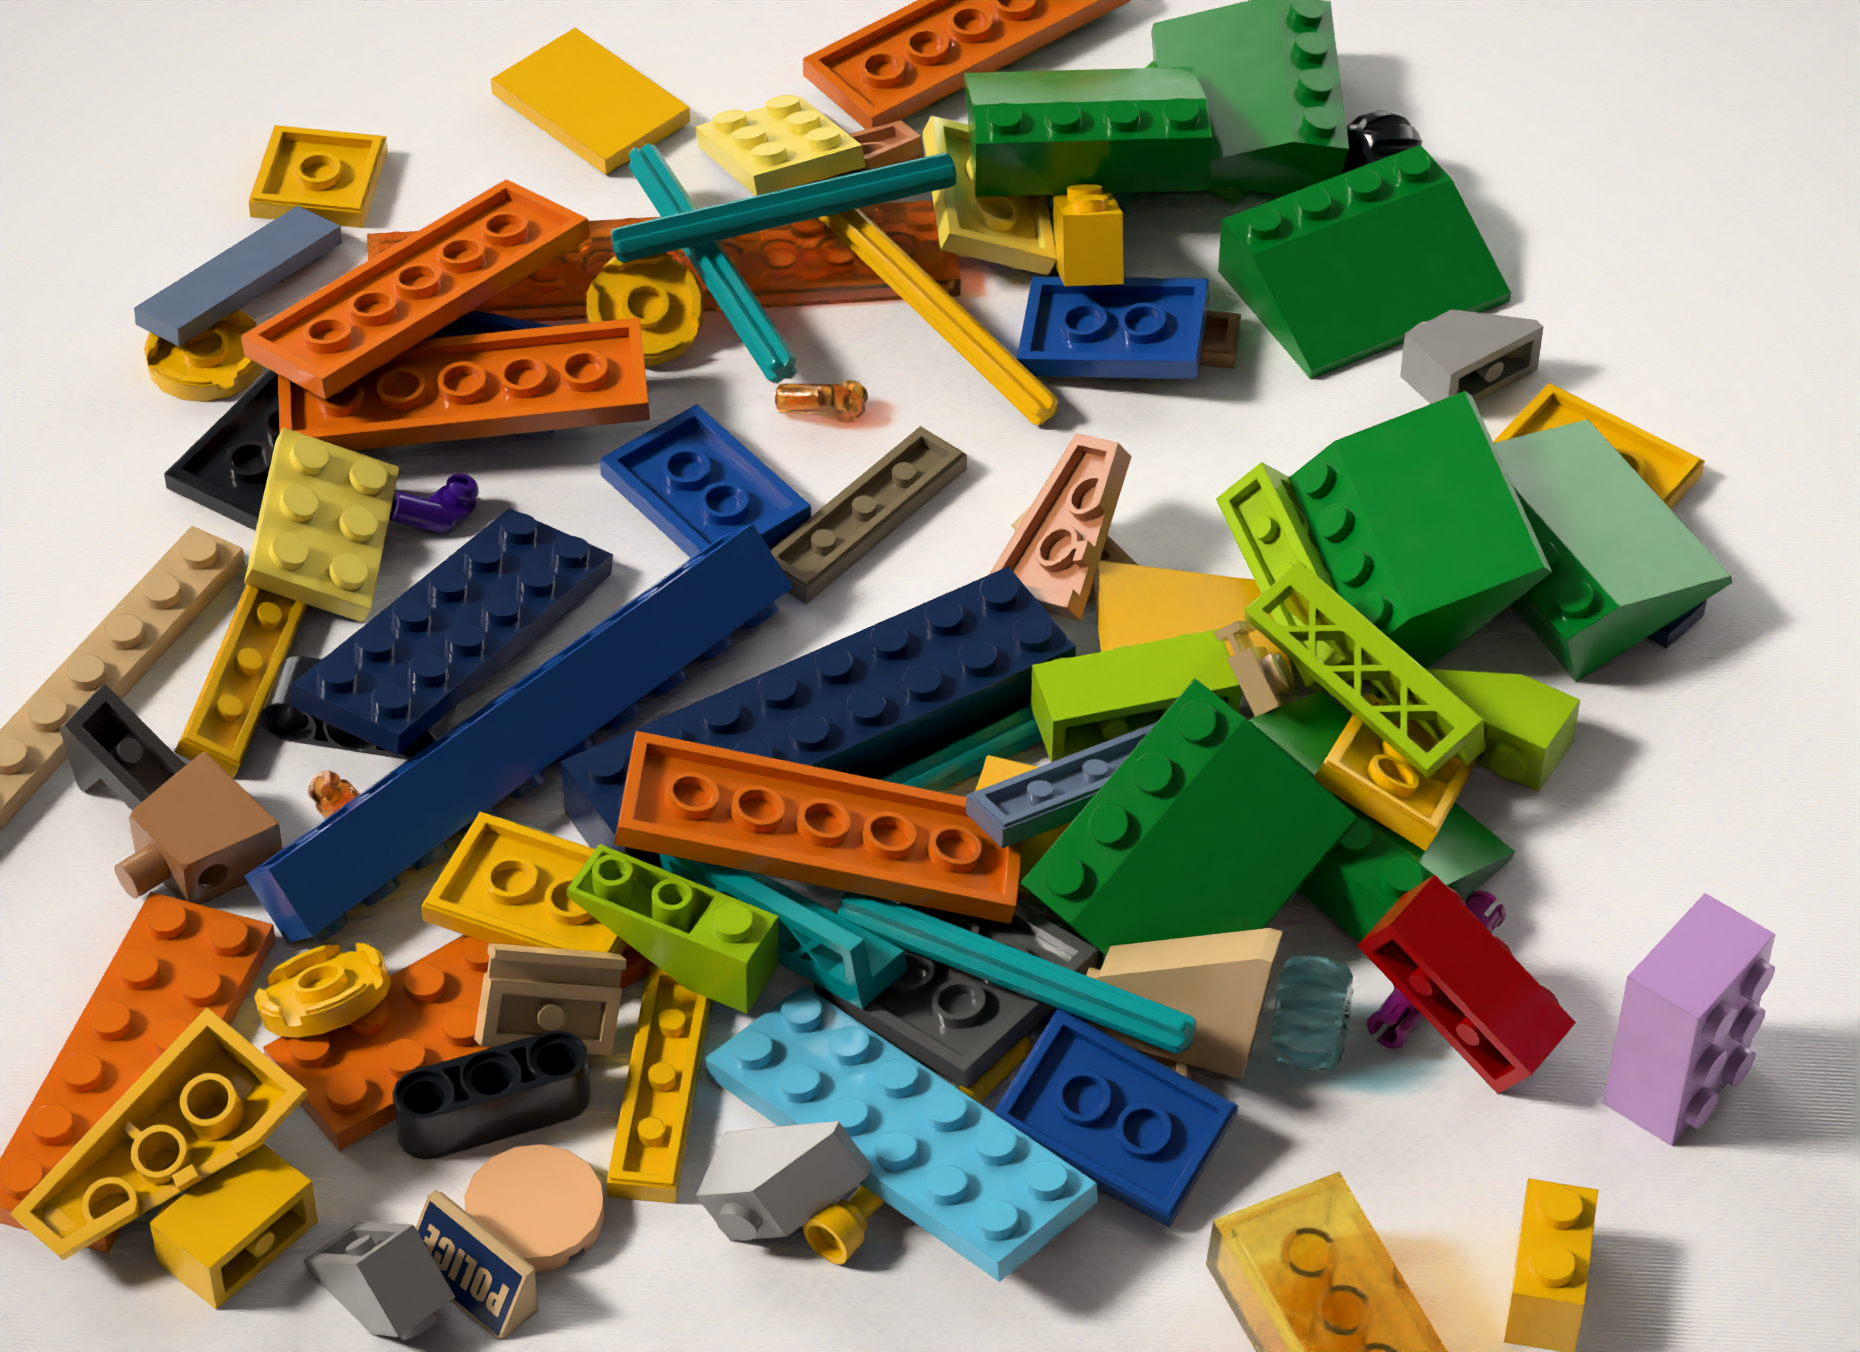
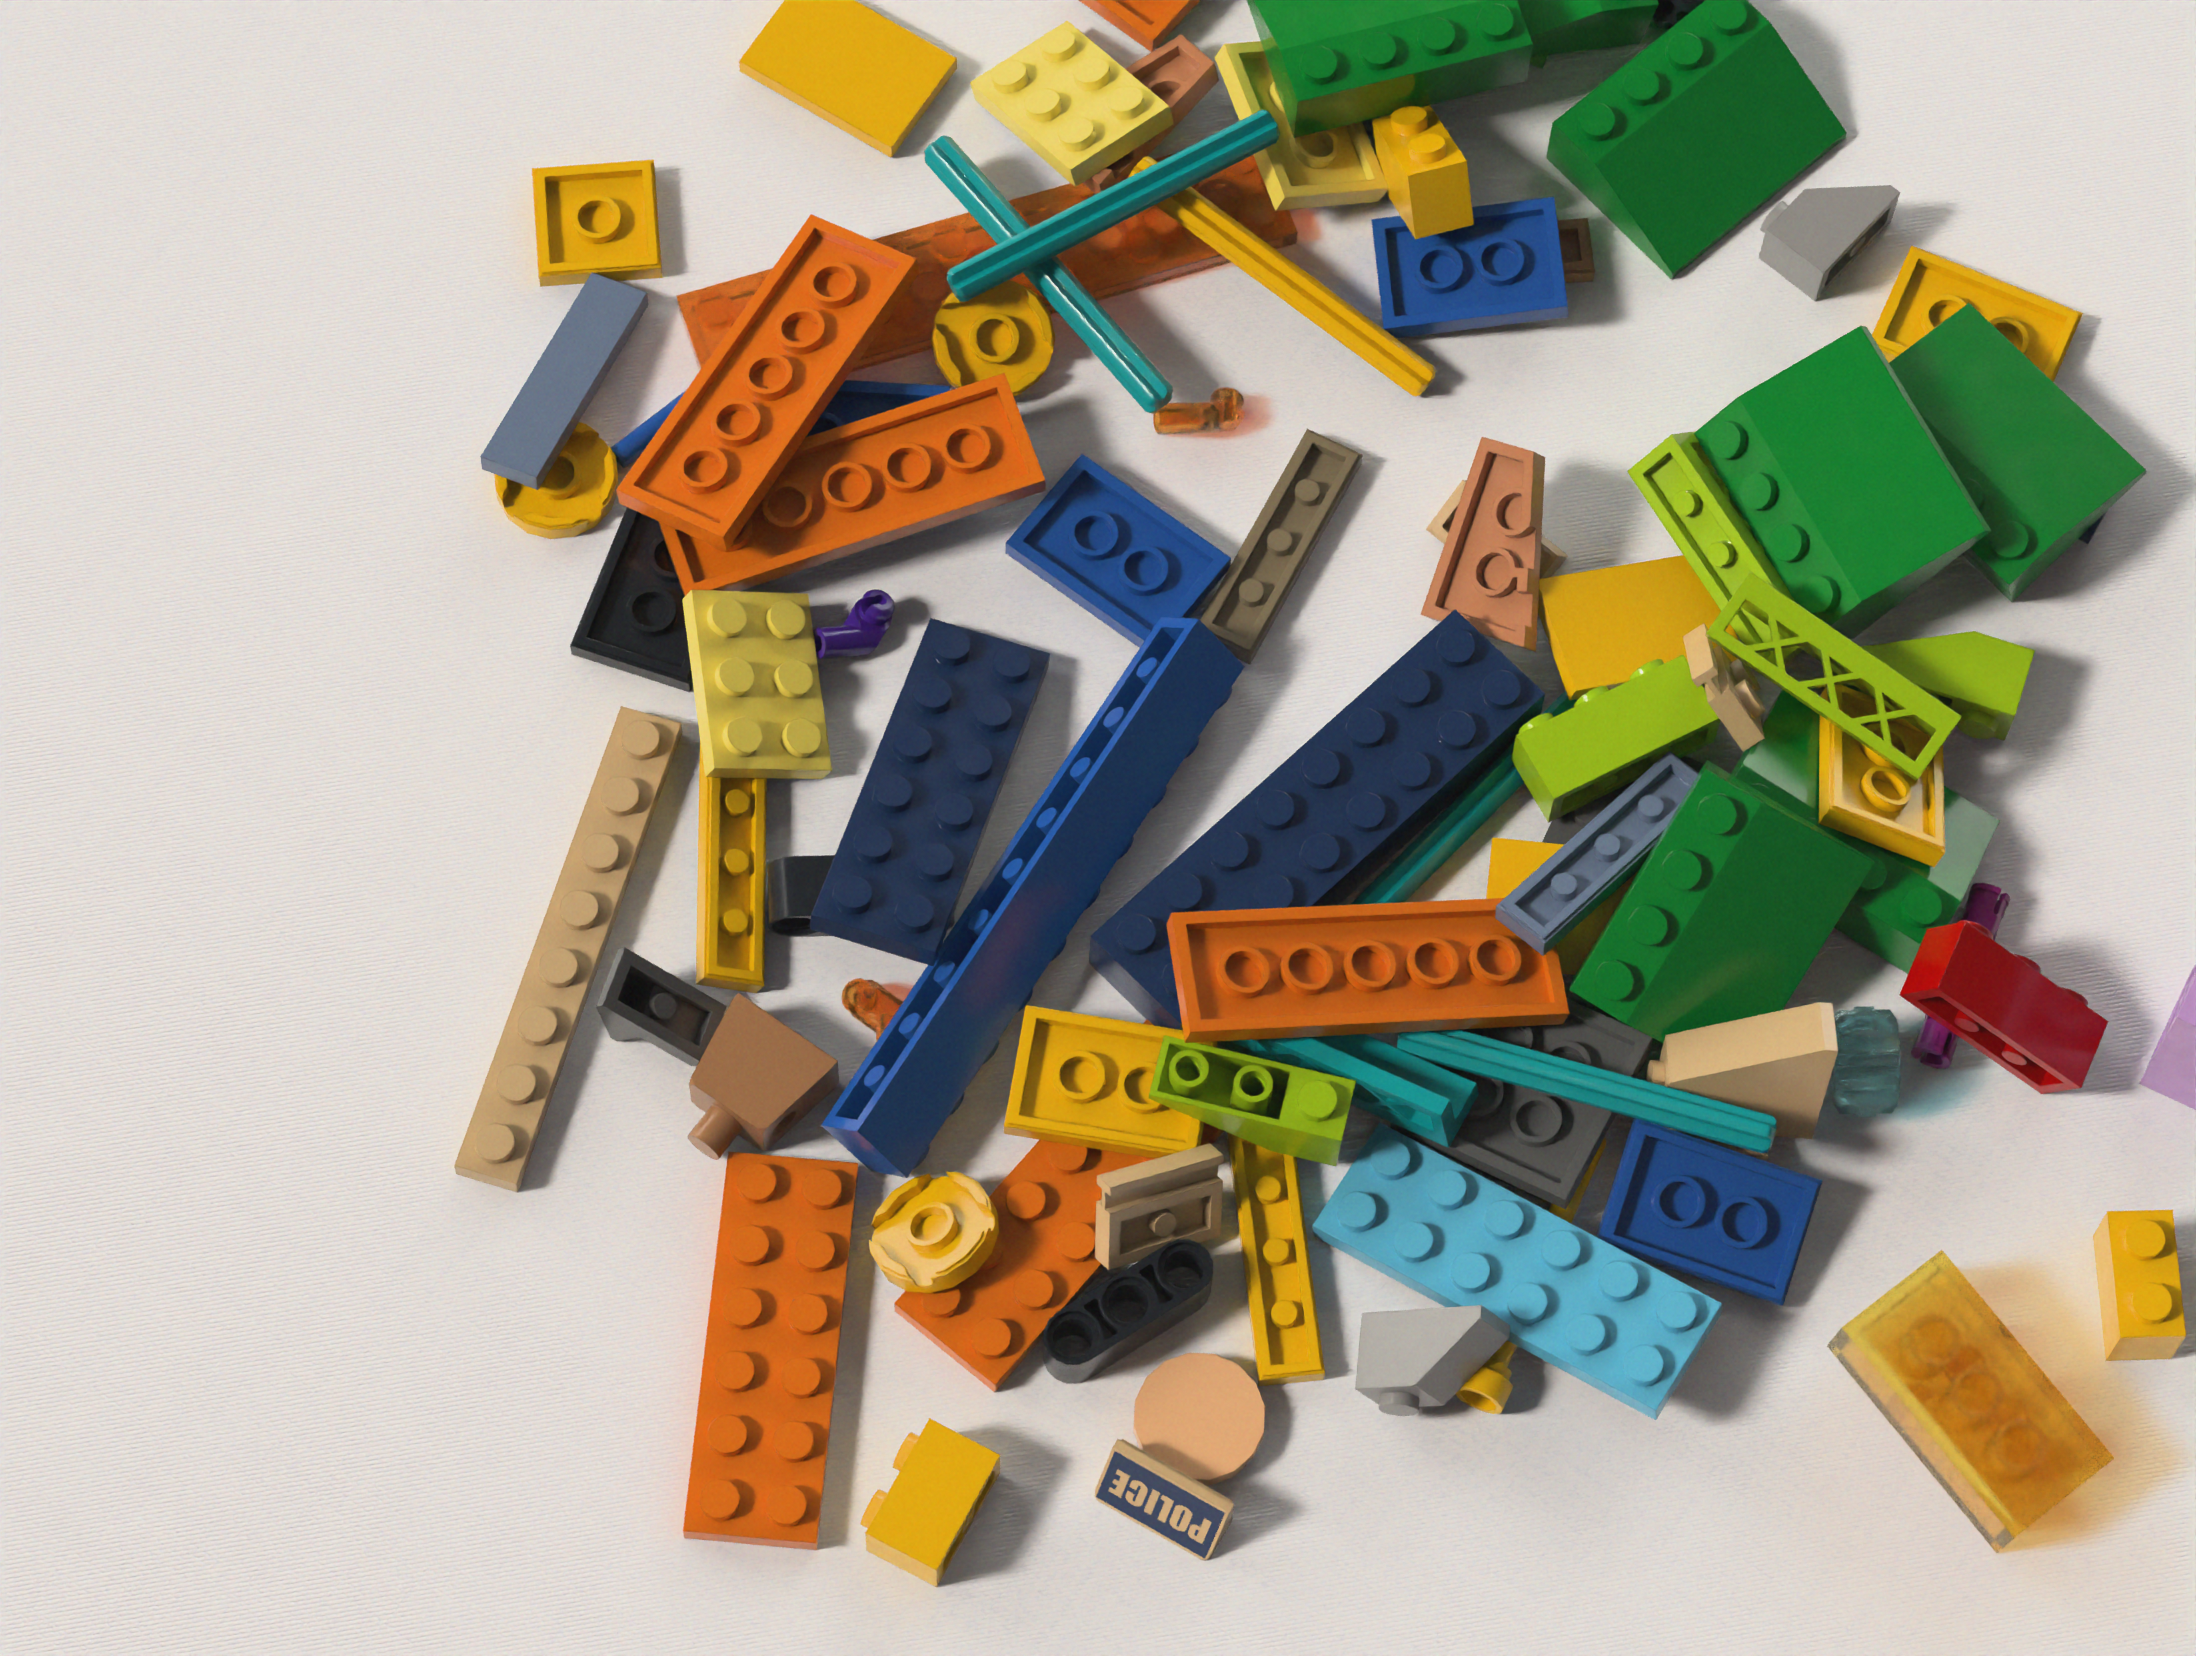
camera: 15 degrees left, 20 degrees up
(173, 1127) = (863, 1432): yellow wedge -> none
(383, 1278) = (1085, 1530): light grey slope -> none

